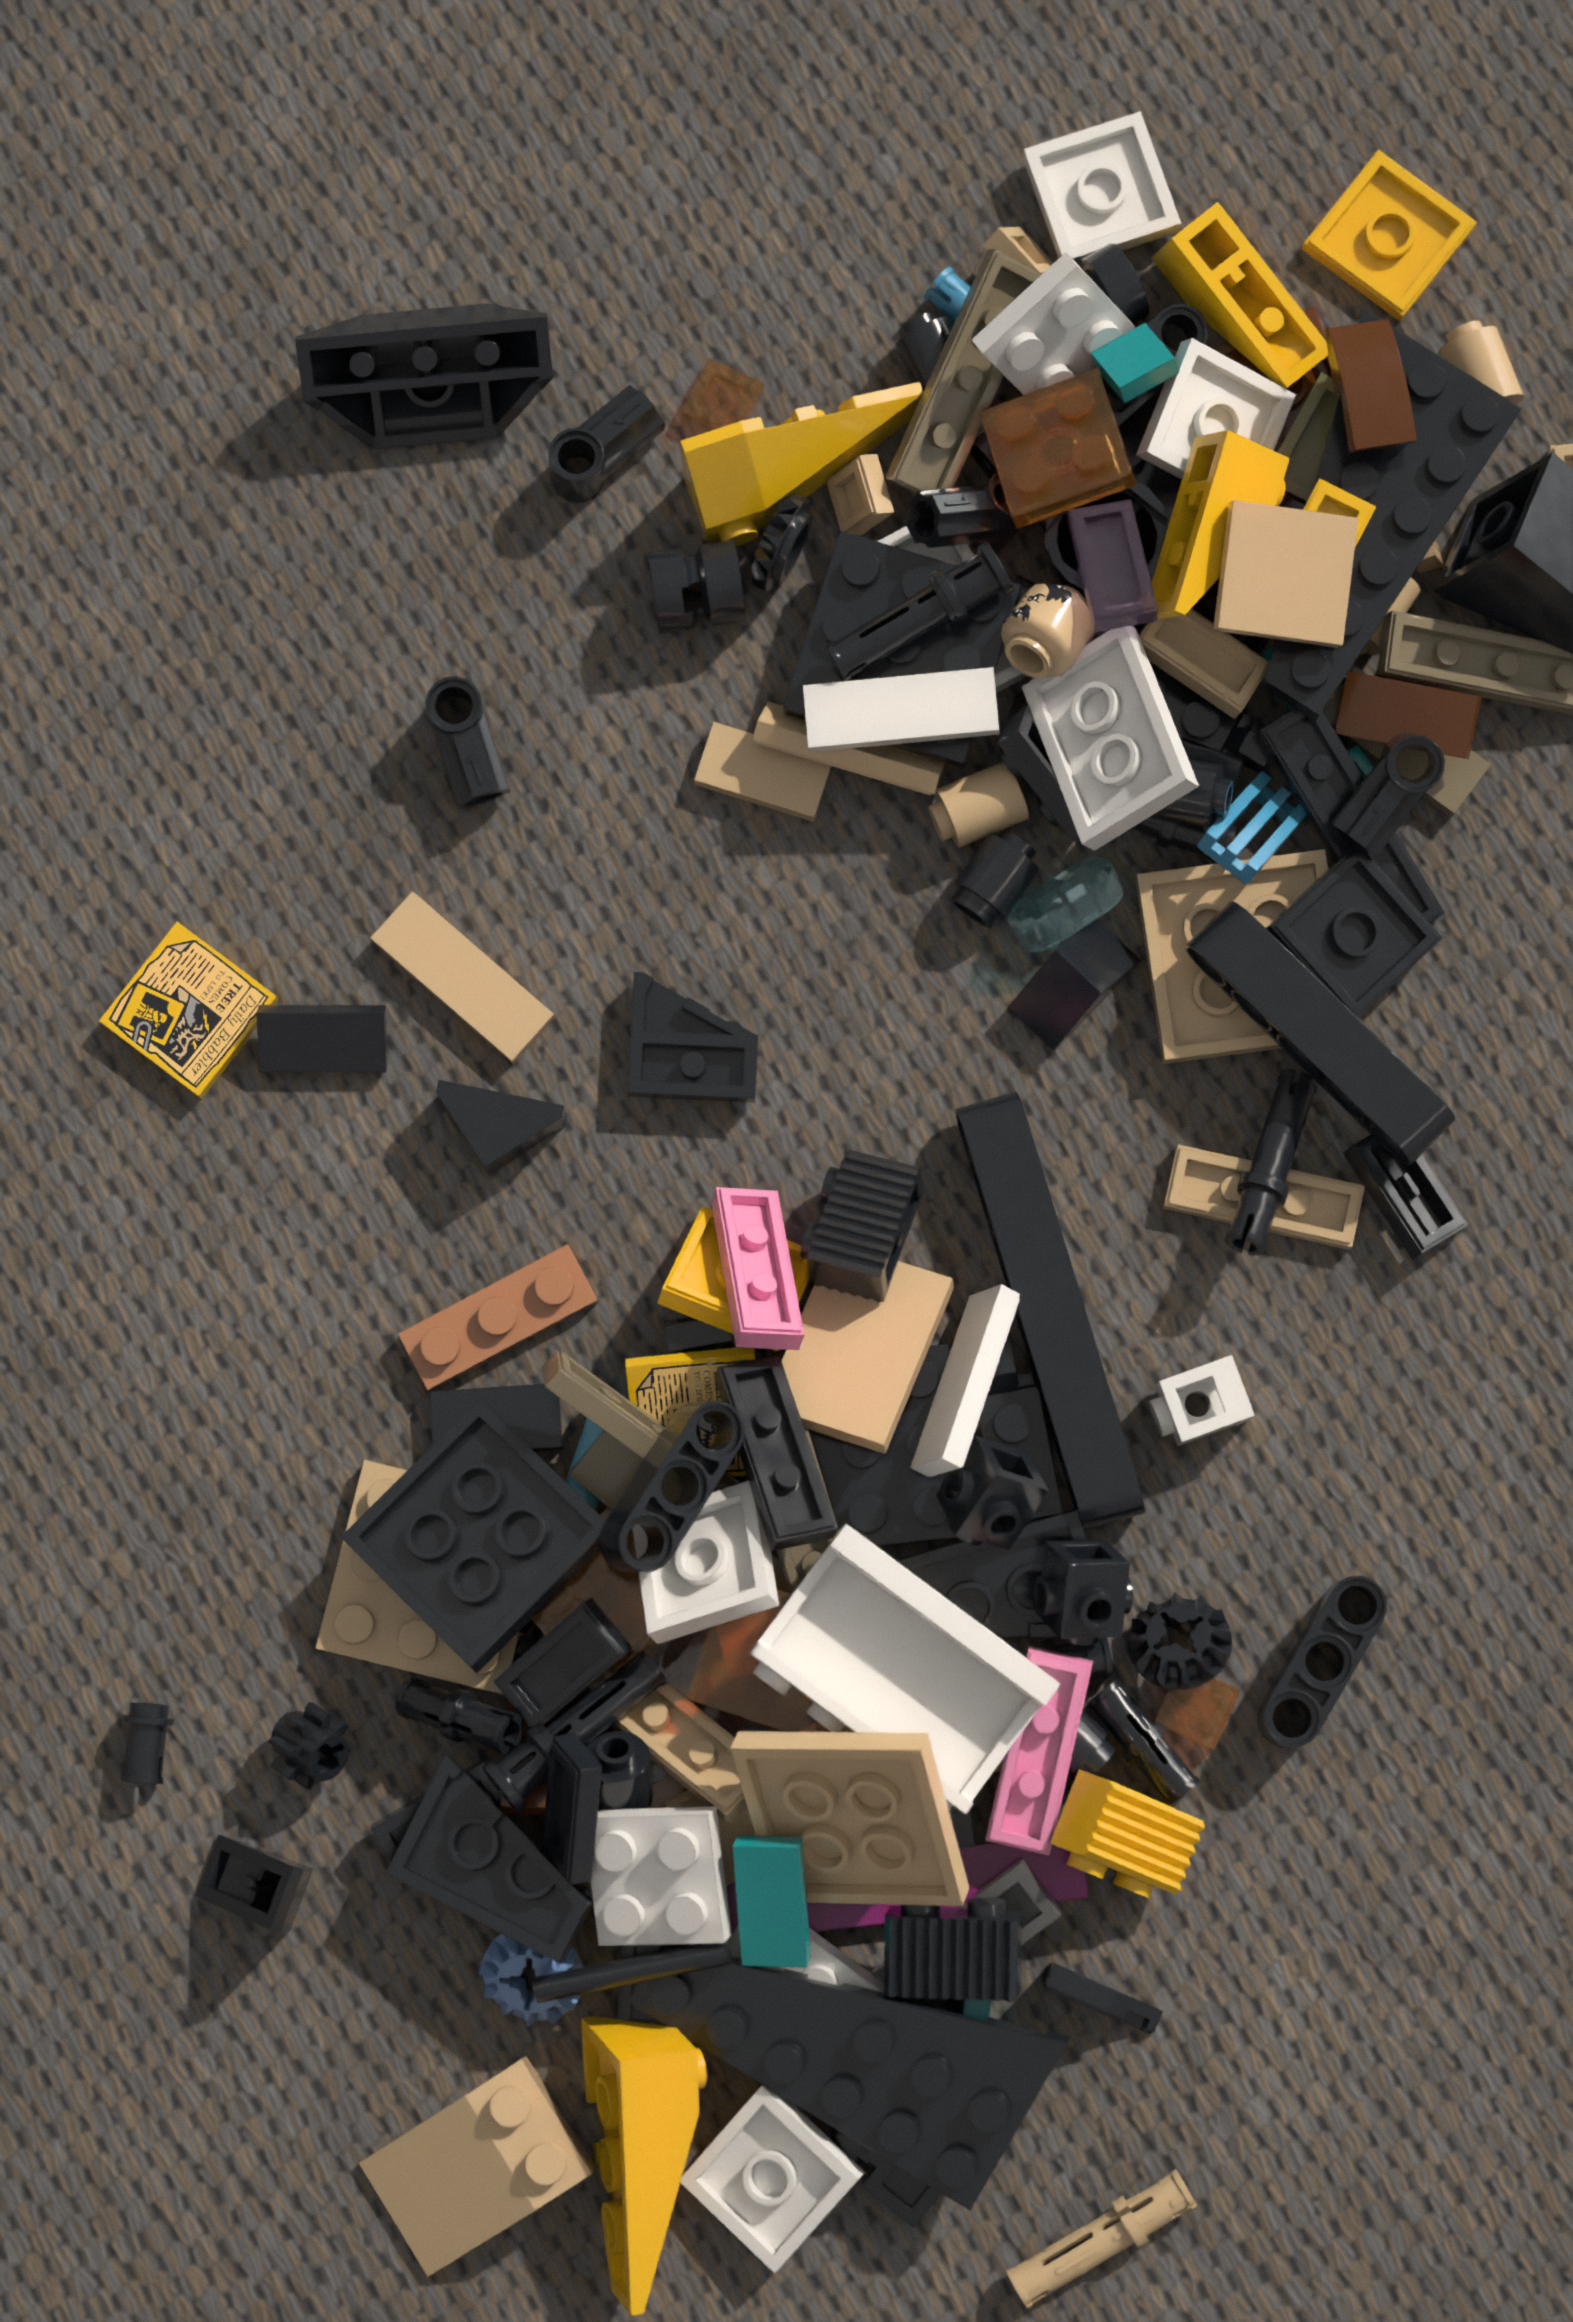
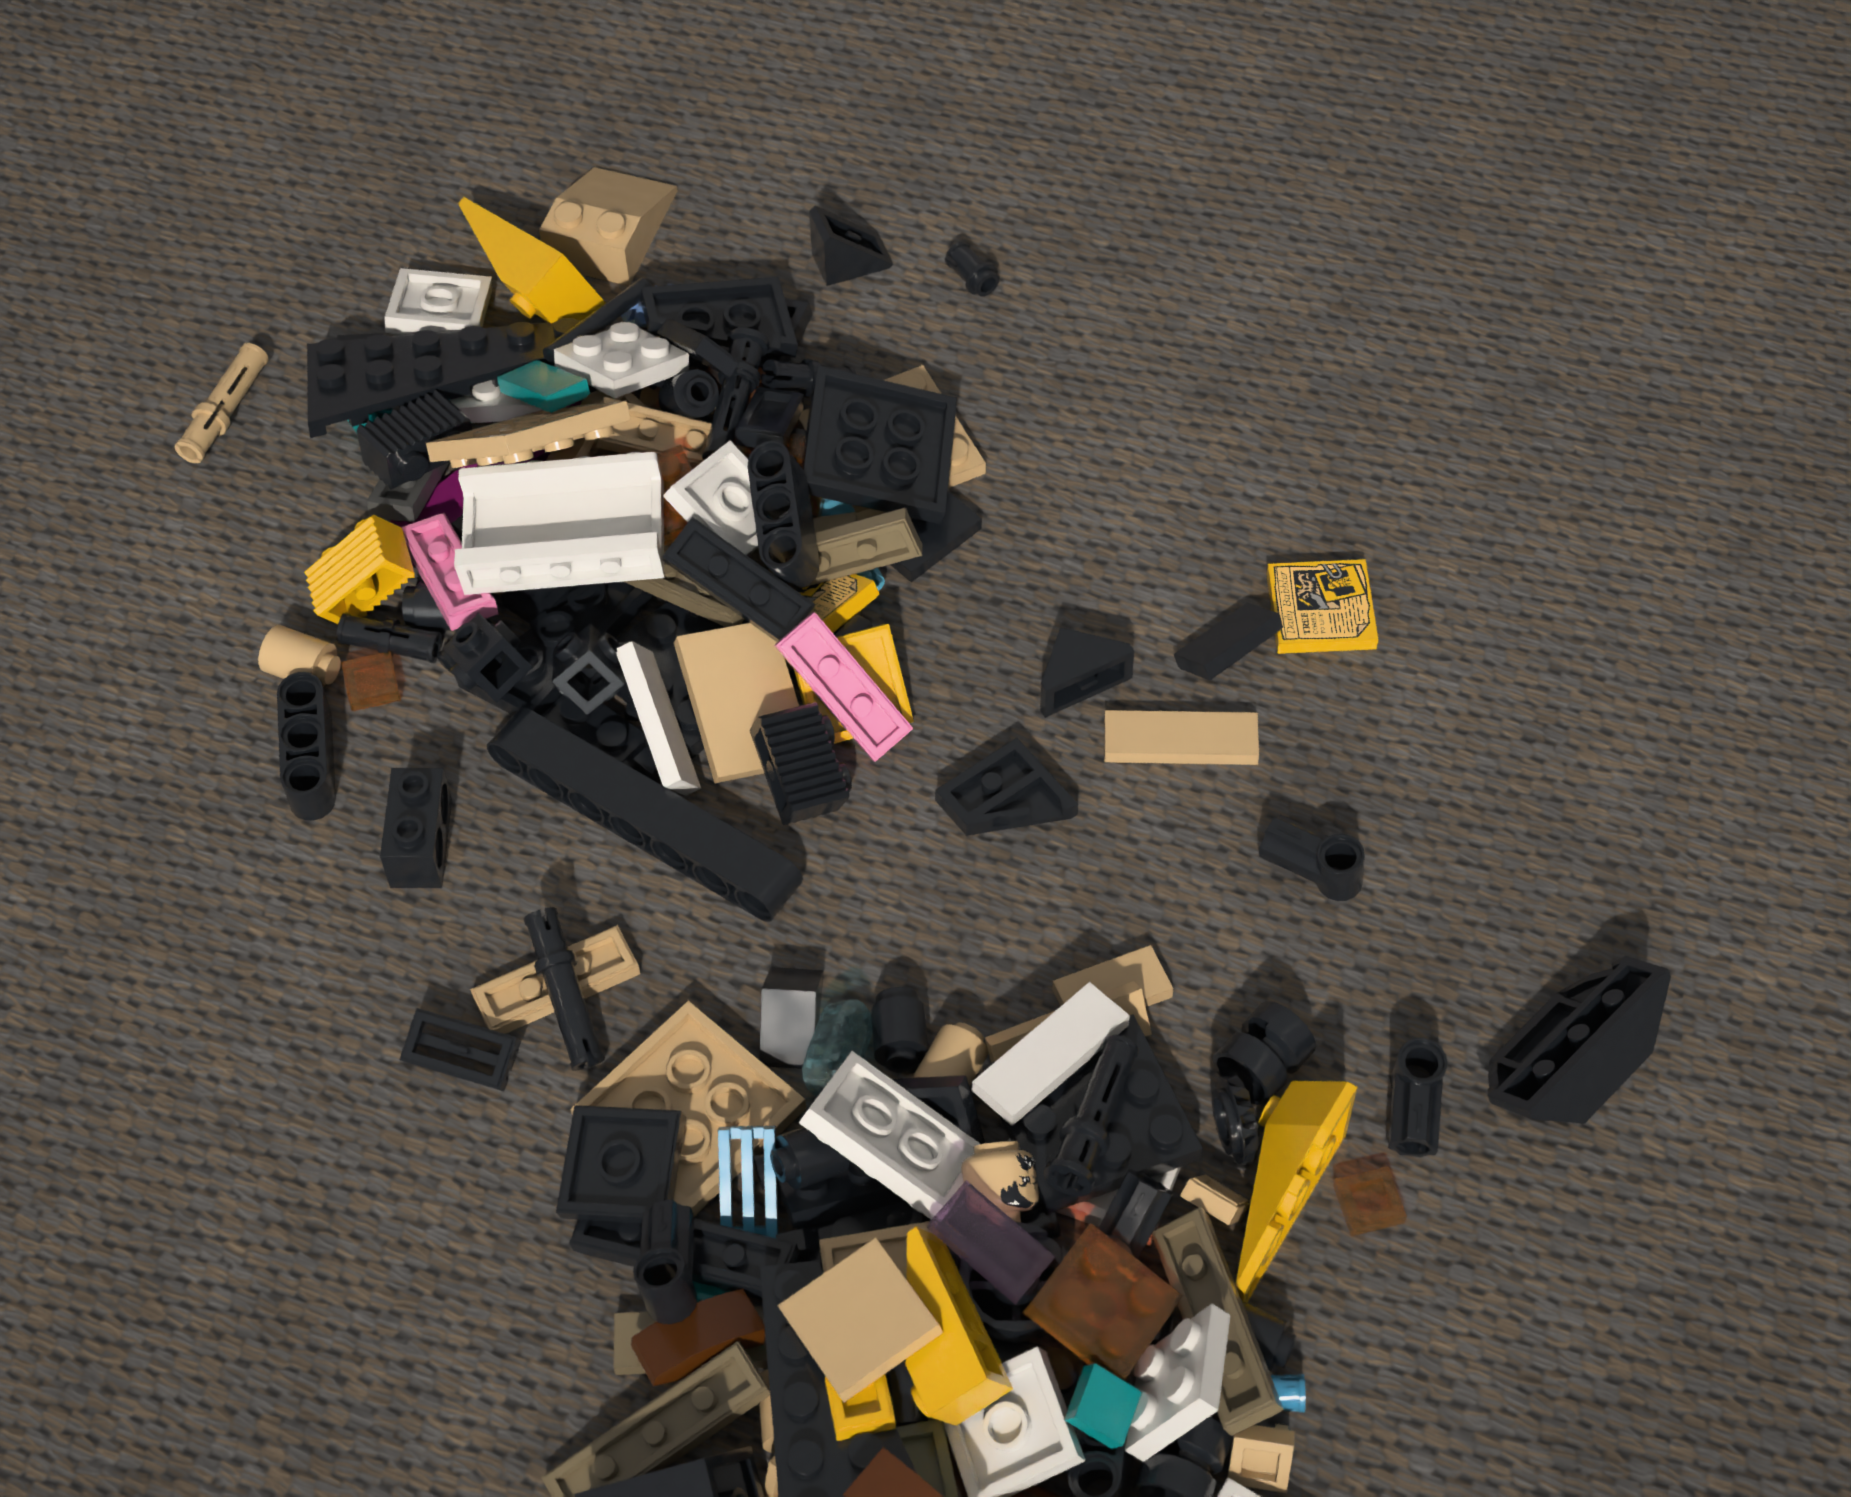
camera: 140 degrees right, 25 degrees down
(309, 1745) = (880, 317): black gear -> none
(498, 1318) = (979, 585): nougat plate -> none
(1101, 1998) = (316, 501): black tile -> none
(1172, 1665) = (386, 702): black gear -> none
(1218, 1384) = (497, 828): white brick -> none
(1254, 1784) = (291, 651): none -> tan brick
(1283, 1464) = (416, 828): none -> black brick
(1320, 1033) = (585, 1072): black beam -> none

